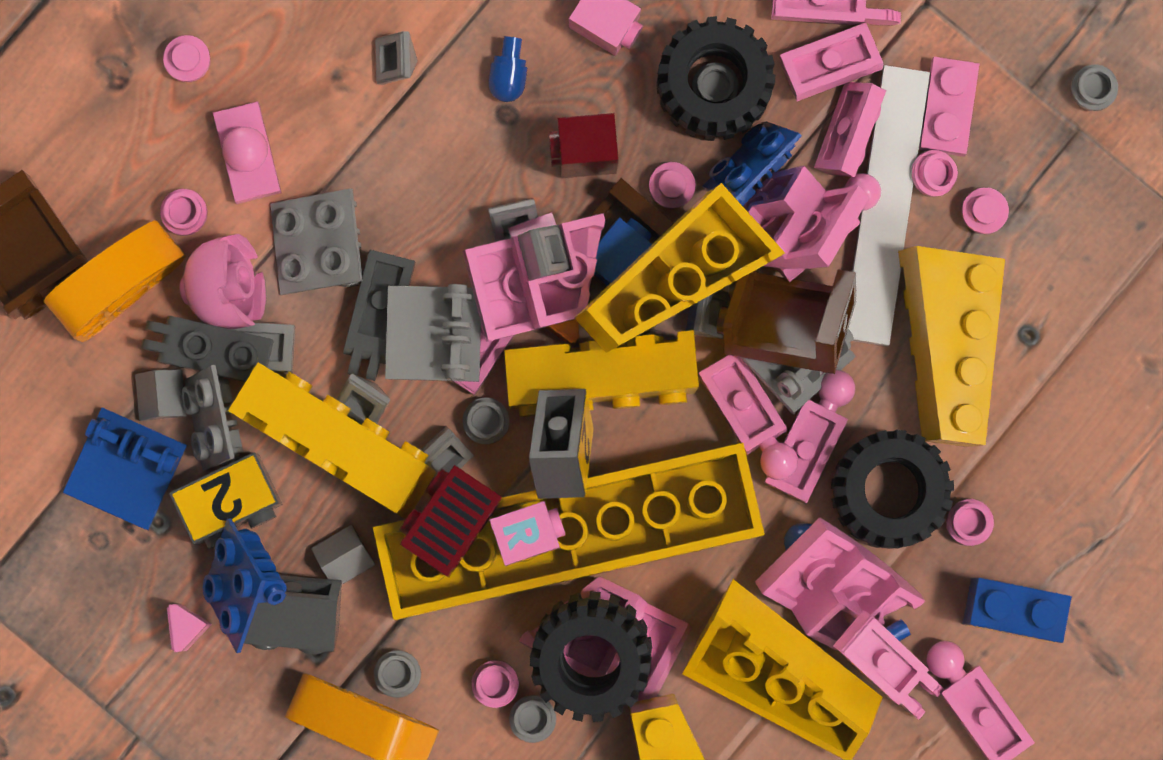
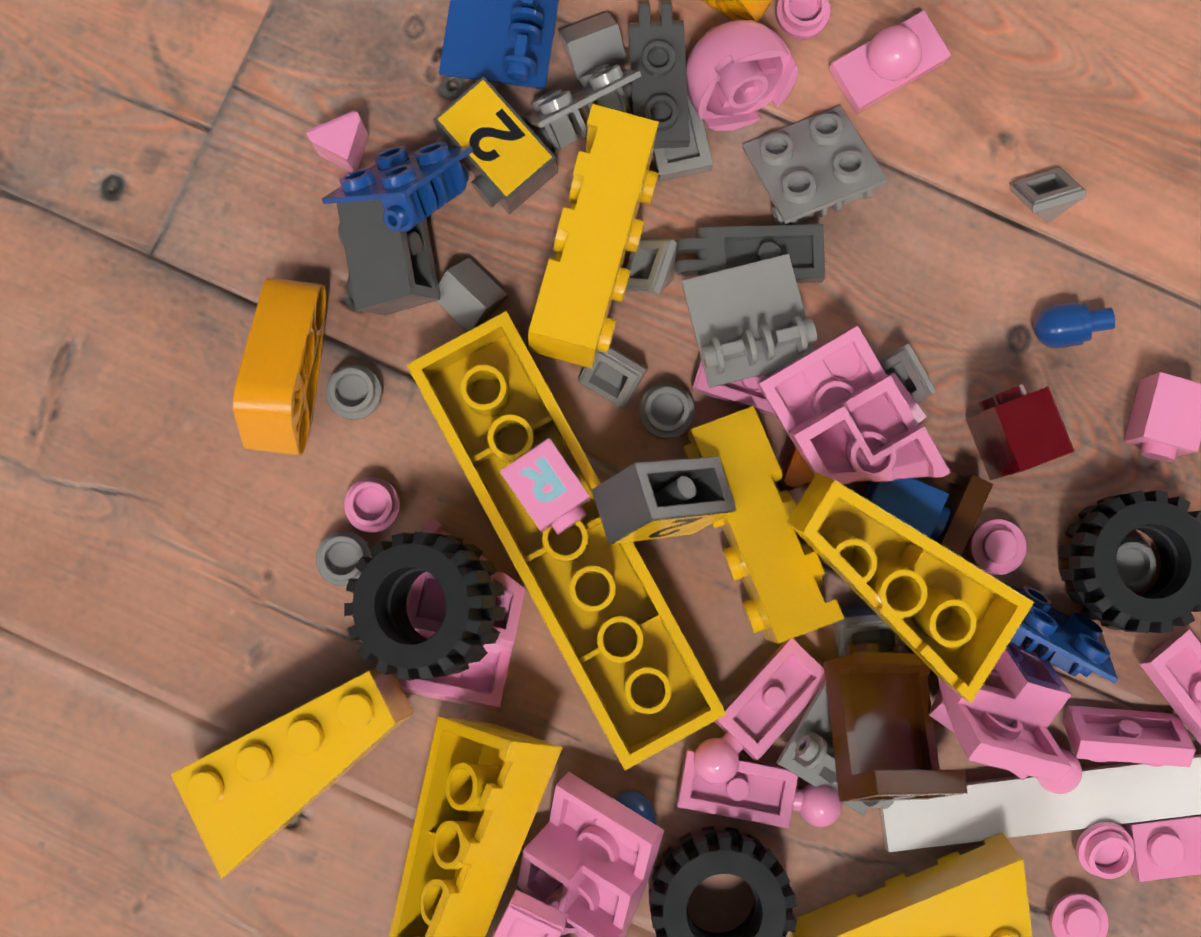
camera: 80 degrees right, 0 degrees up
(450, 519) = (536, 393): dark red brick -> none
(544, 252) = (884, 415): light grey slope -> none

